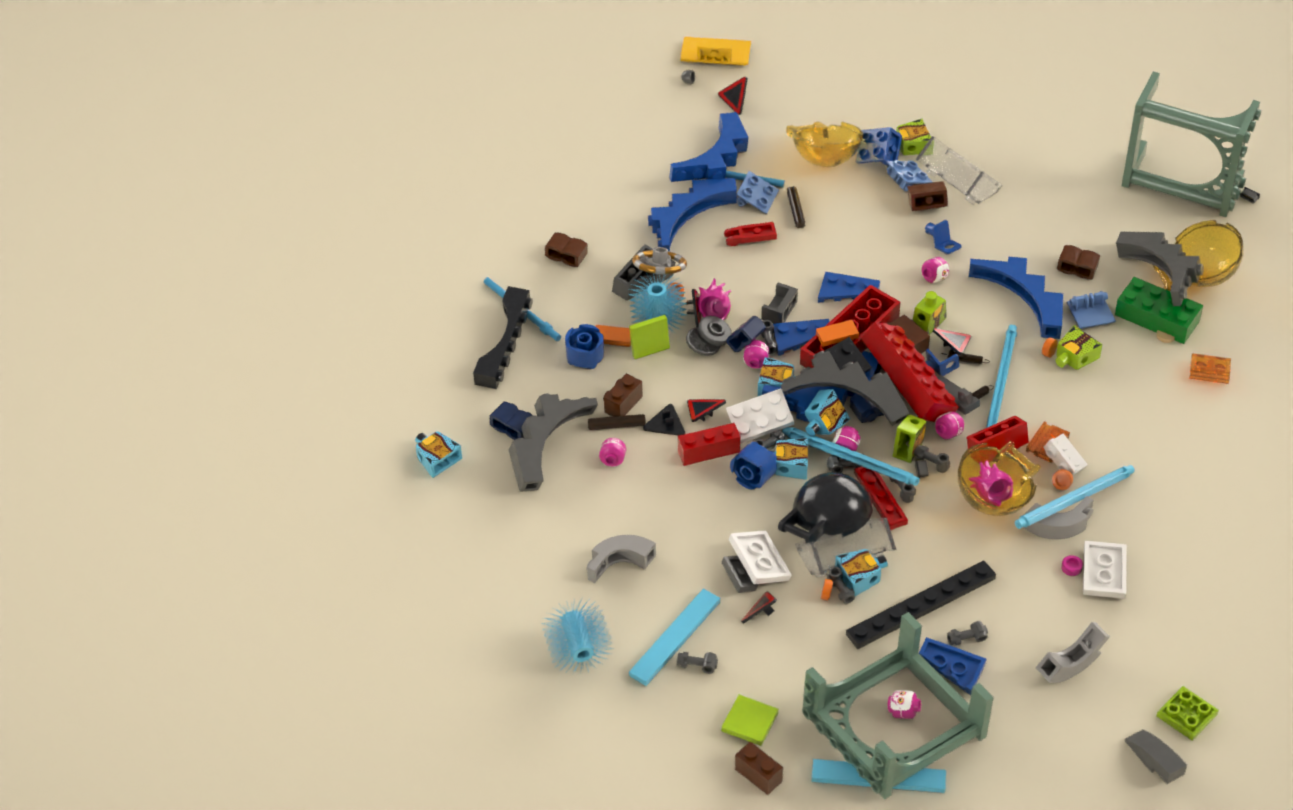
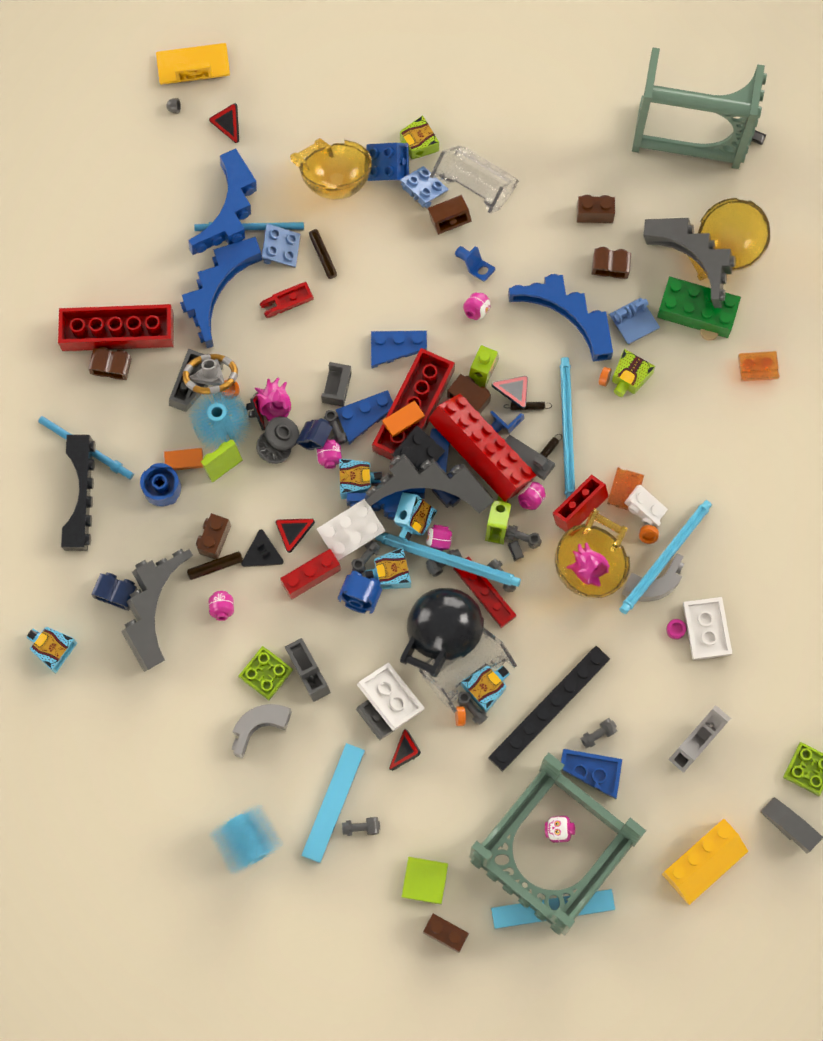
camera: 15 degrees left, 25 degrees up
(582, 220) = (116, 327): none -> red brick
(640, 516) = (265, 673): none -> lime tile
(682, 521) = (307, 669): none -> dark grey slope
(1053, 766) = (705, 861): none -> yellow slope
(1073, 218) = (595, 209): none -> reddish brown brick

